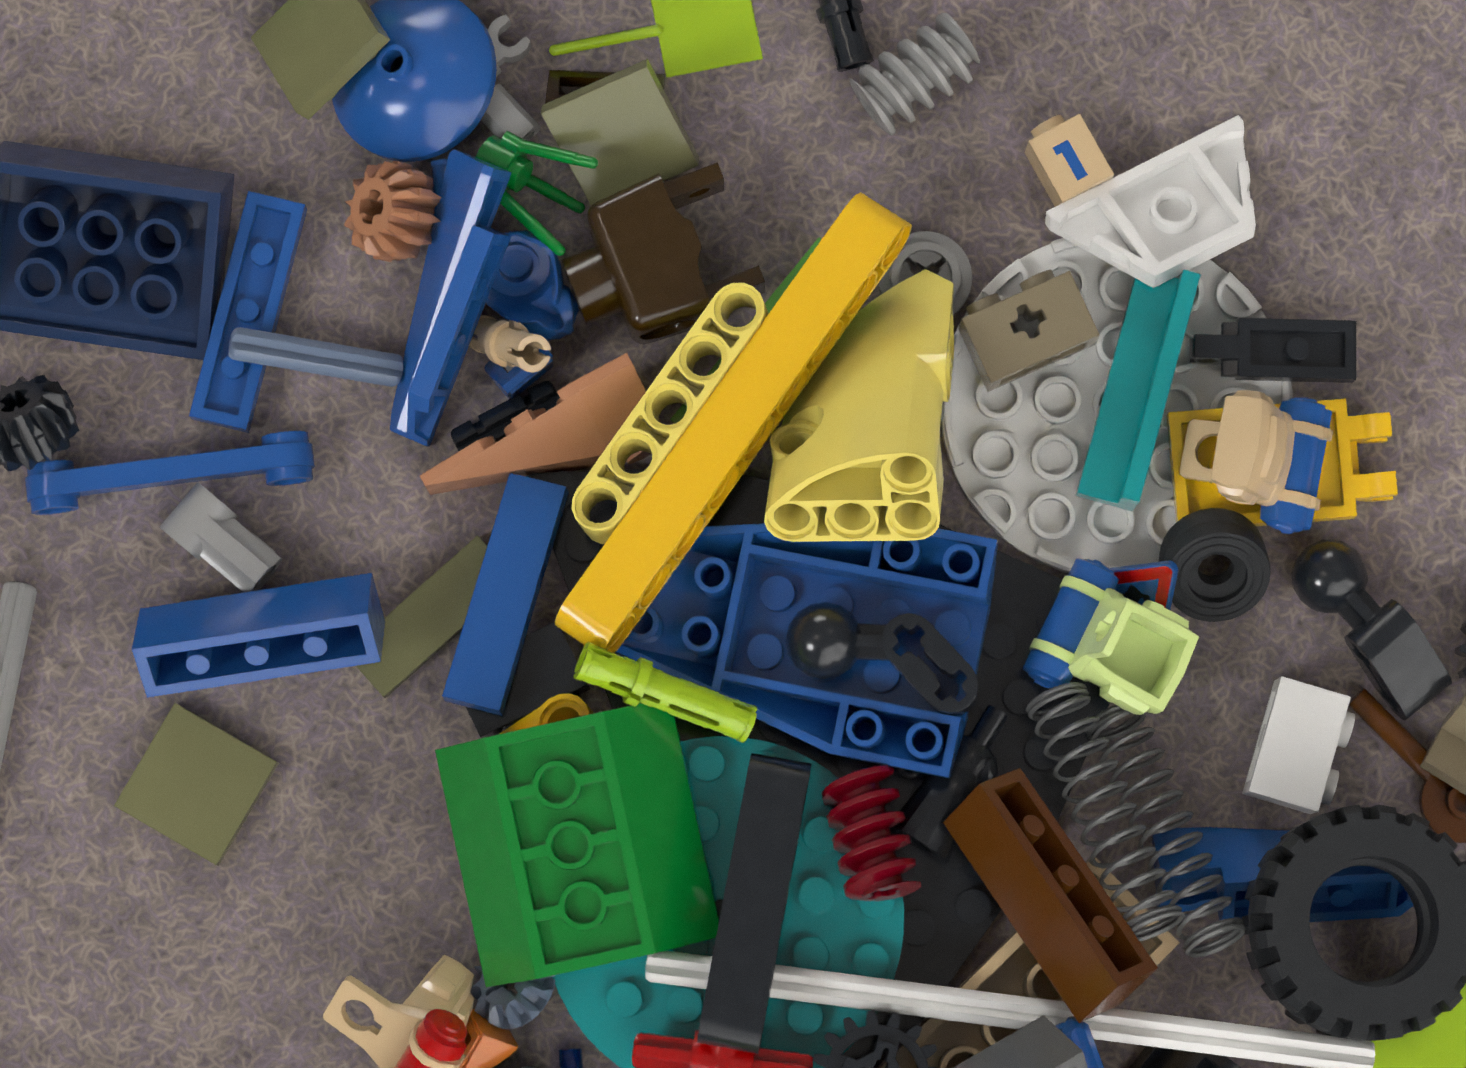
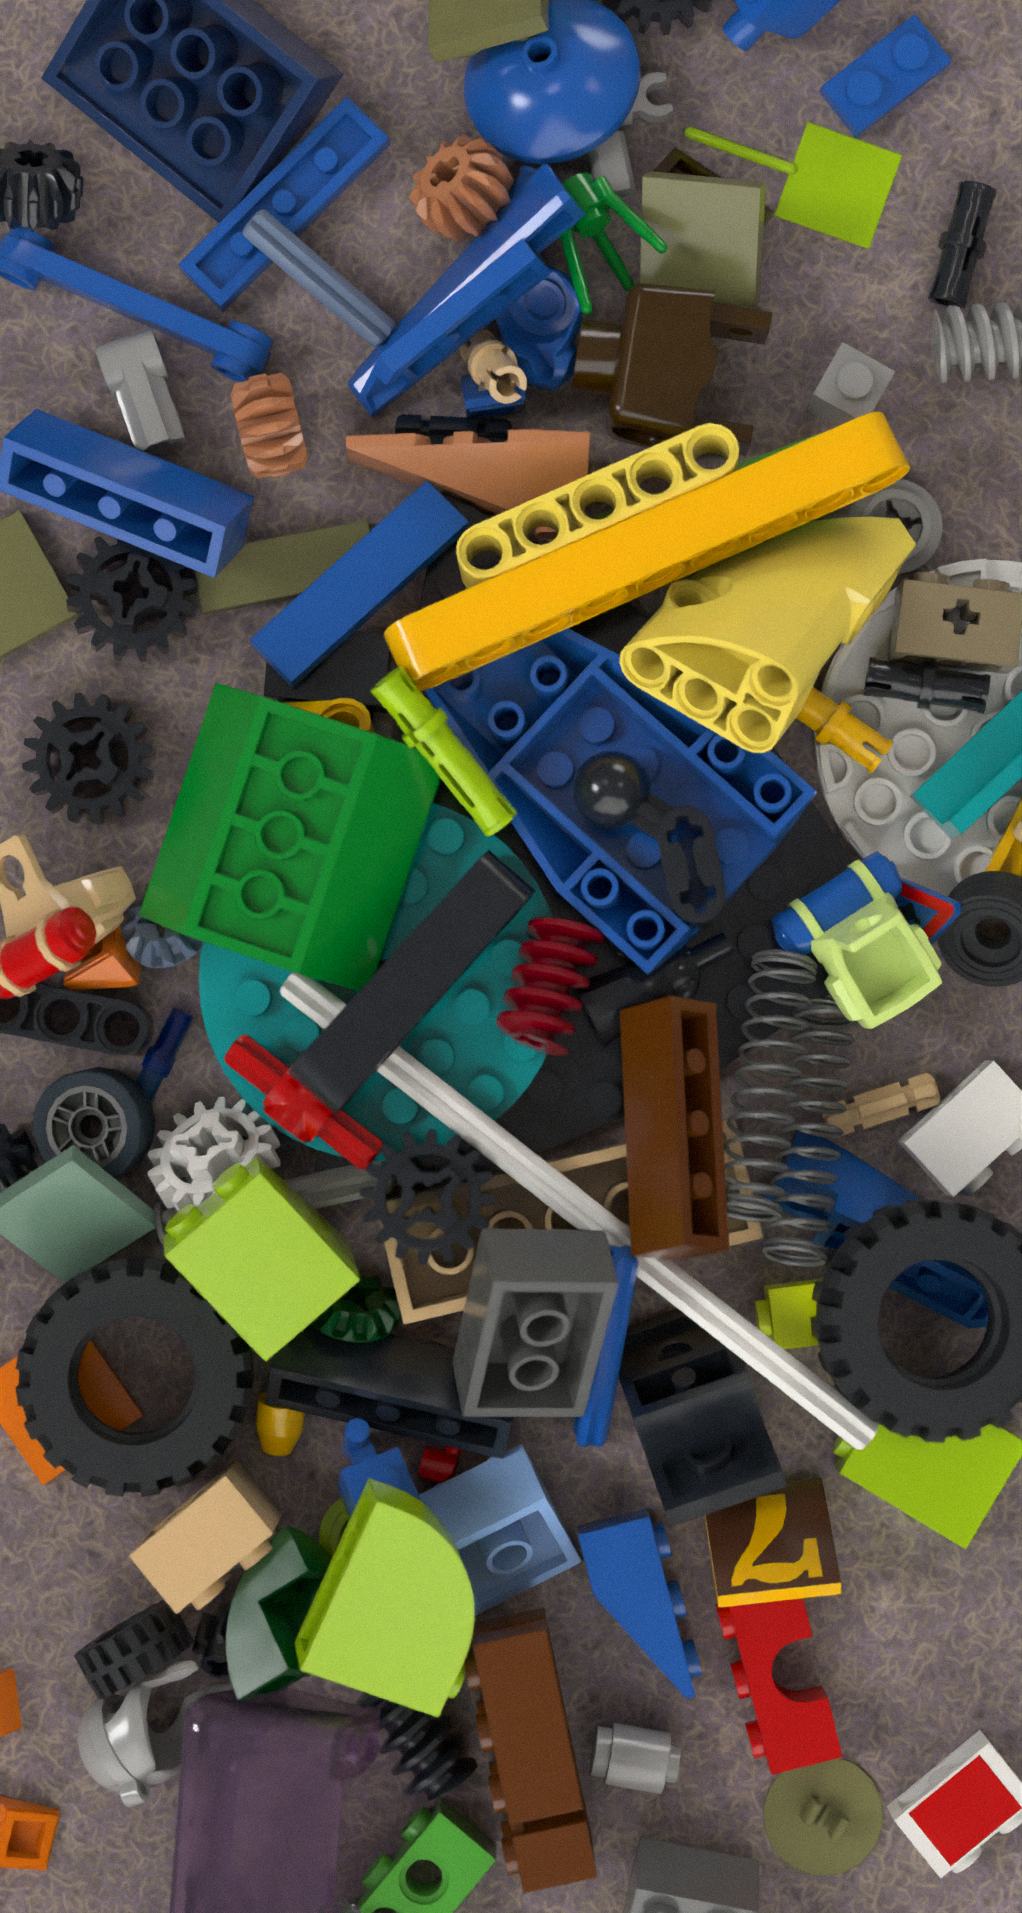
camera: 25 degrees right, 5 degrees up
(288, 727) = (105, 587): none -> black gear
(348, 505) = (269, 425): none -> nougat gear
(387, 882) = (71, 782): none -> black gear
(818, 185) = (849, 386): none -> light grey brick
(987, 473) = (843, 729): none -> yellow pin
(1033, 394) = (927, 685): none -> black pin
(1213, 767) = (885, 1104): none -> tan axle
(1238, 995) = (787, 1313): none -> neon yellow brick

